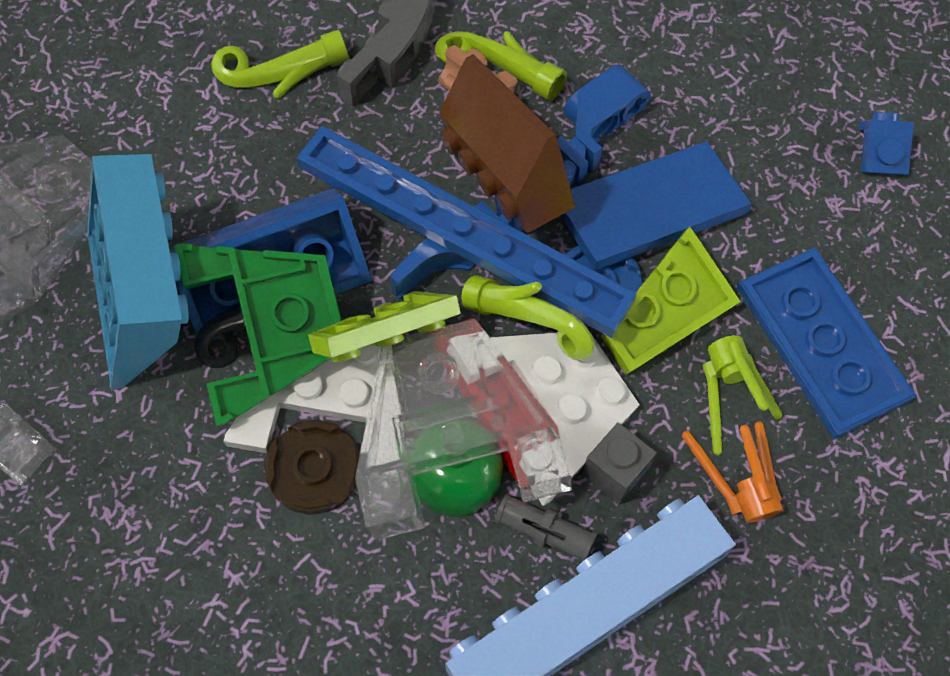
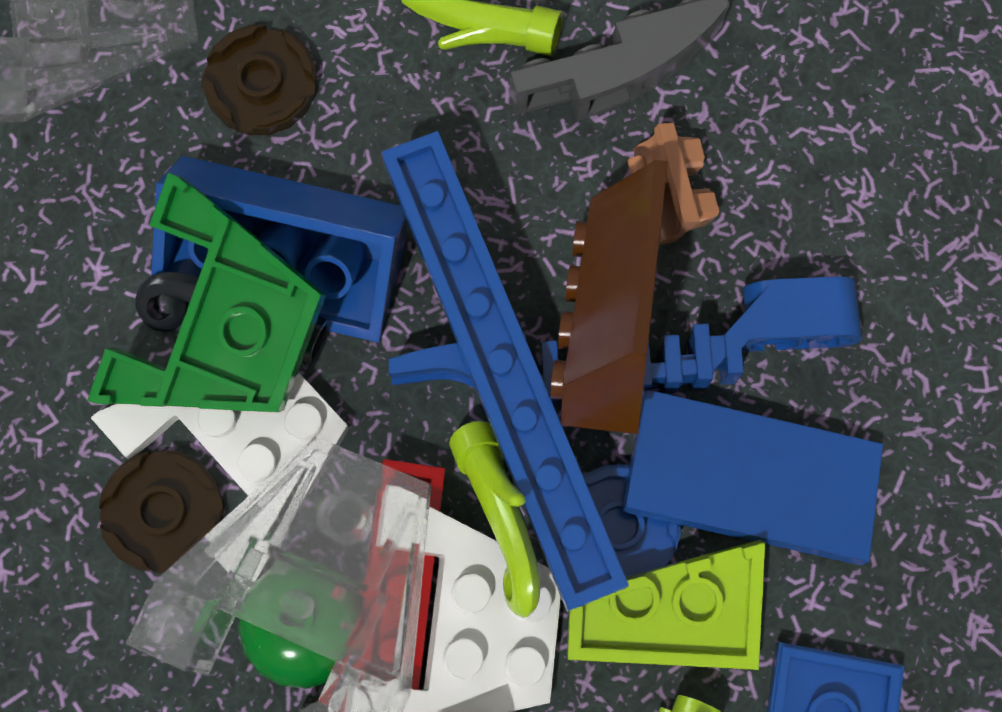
camera: 35 degrees right, 10 degrees up
(133, 264) = (117, 156): dark azure slope -> none
(184, 195) = (261, 98): none -> dark brown tile
(418, 311) = (345, 422): lime wing -> none
(544, 79) = (754, 231): lime plant -> none

